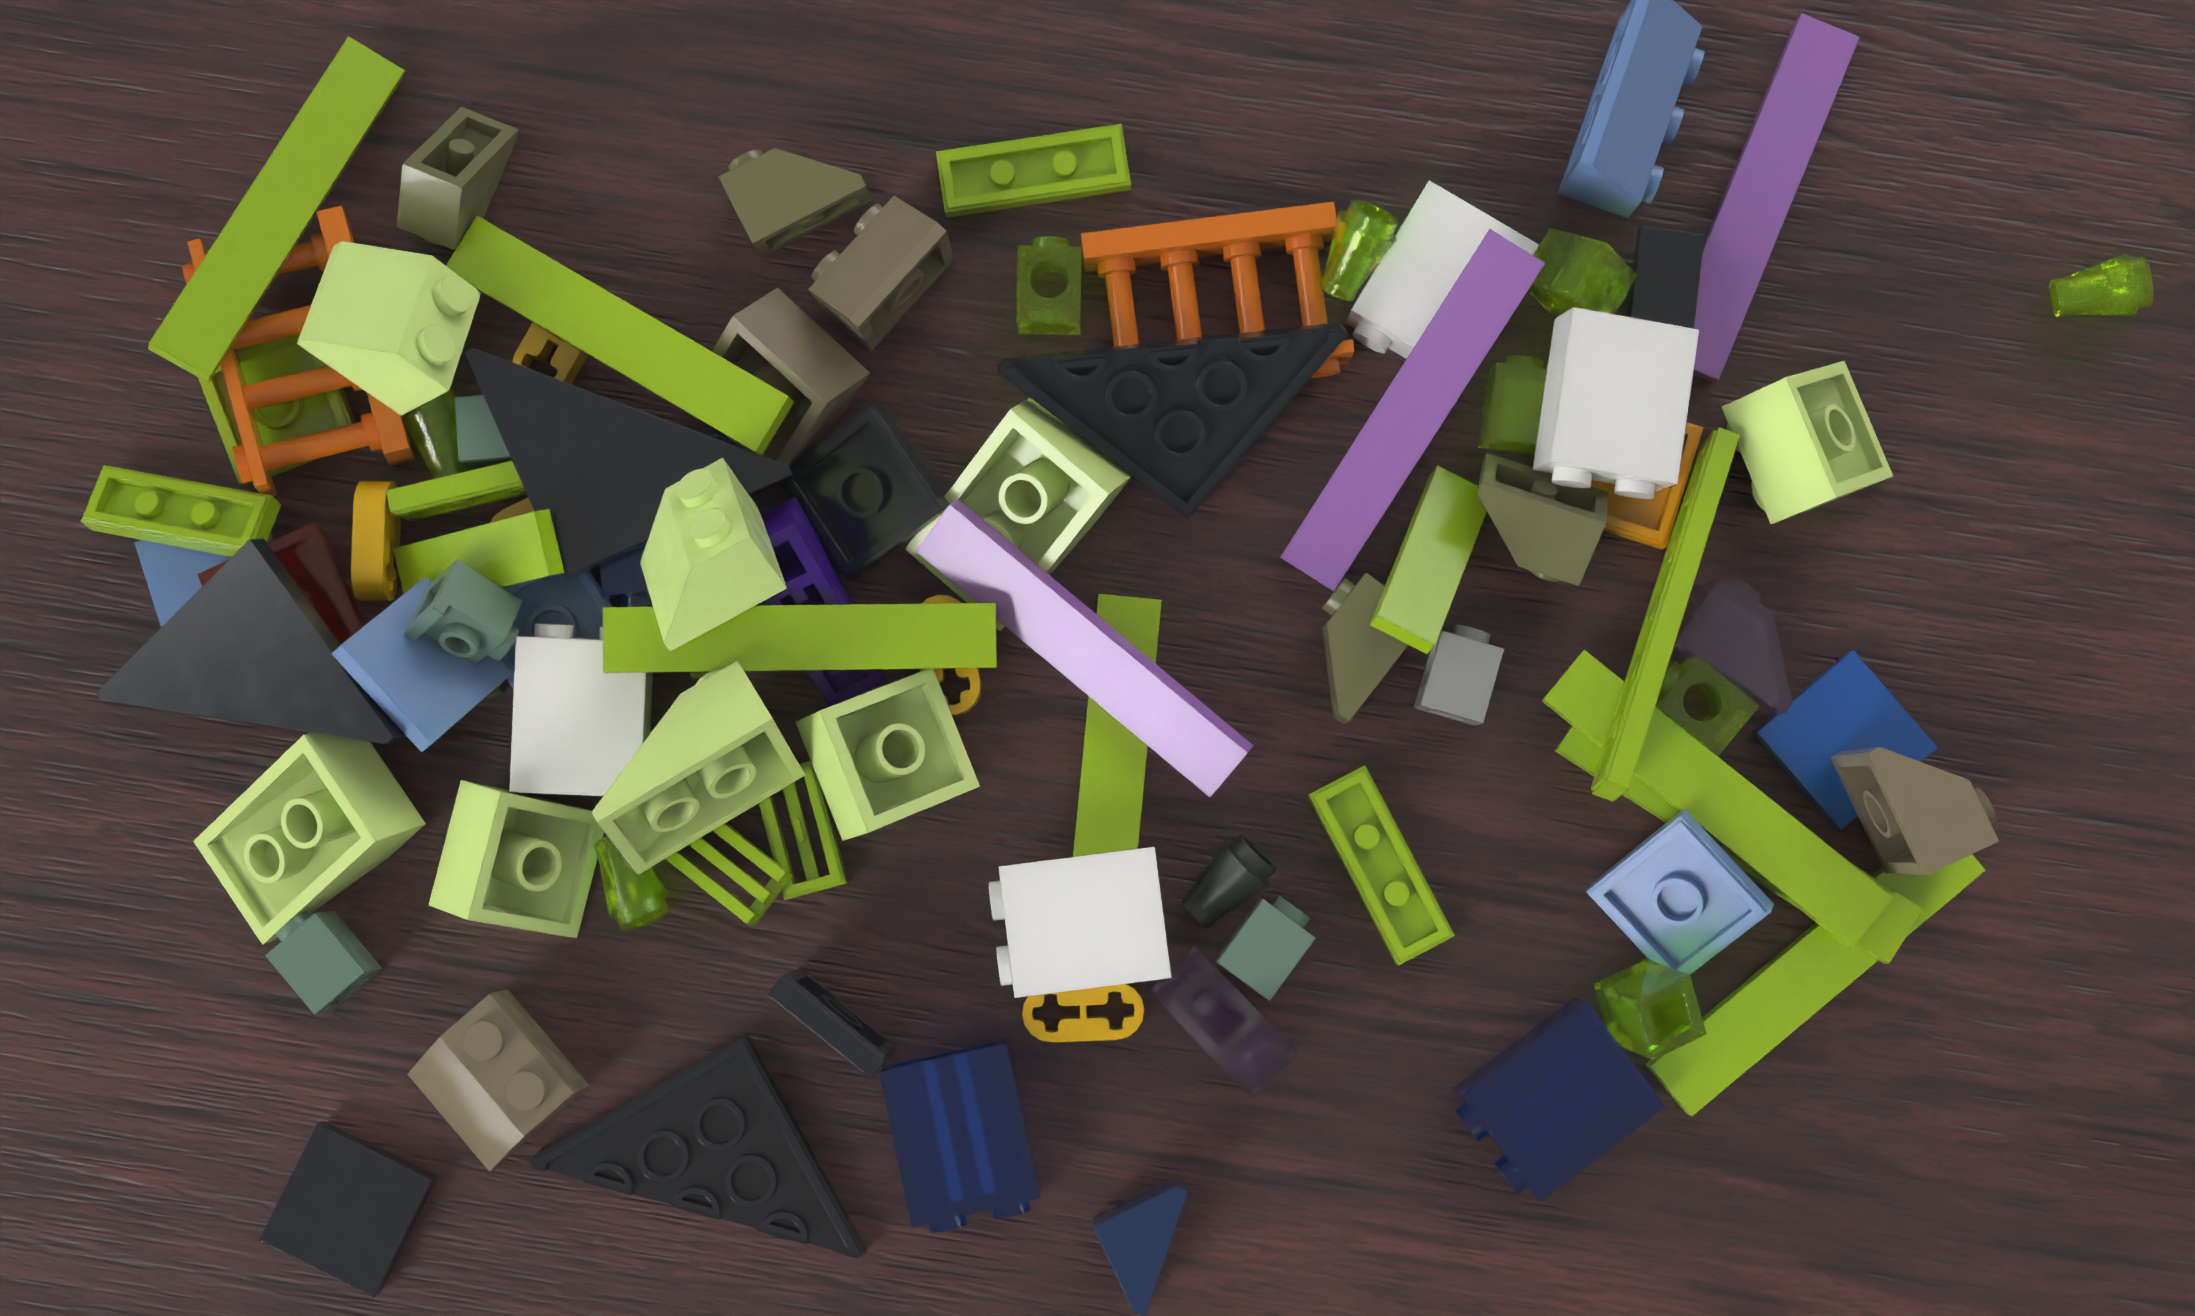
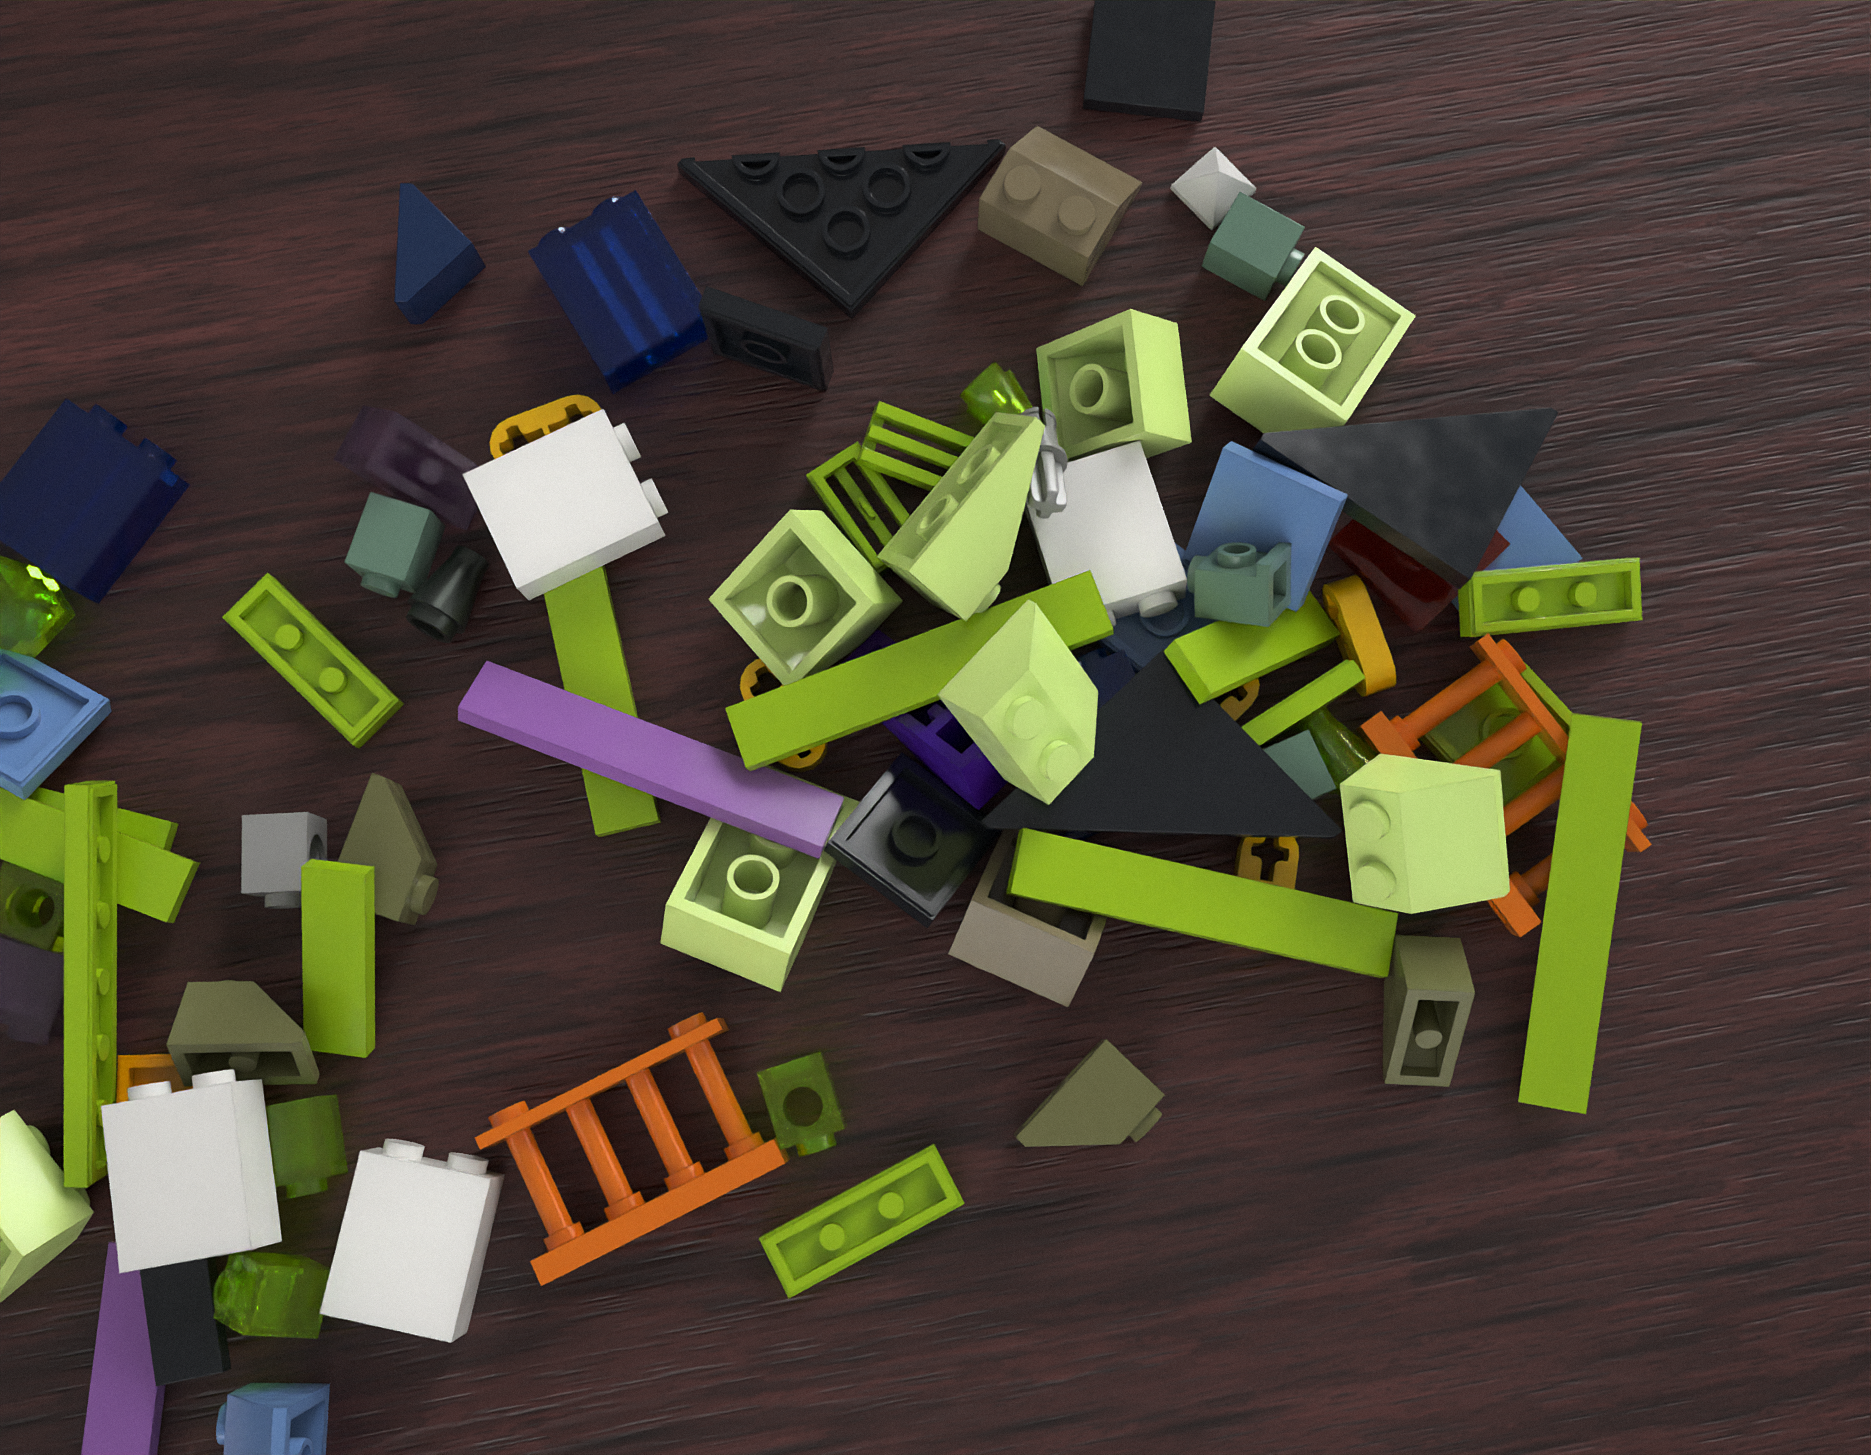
camera: 155 degrees right, 5 degrees down
(339, 1044) = (1212, 187): none -> white slope
(612, 758) = (1047, 485): none -> light grey axle
(881, 270) = (975, 1059): dark tan slope -> none
(1180, 407) = (630, 1021): black tile -> none
(1357, 247) = (502, 1248): clear neon green cone -> none
(1412, 409) = (396, 1105): medium lavender tile -> none

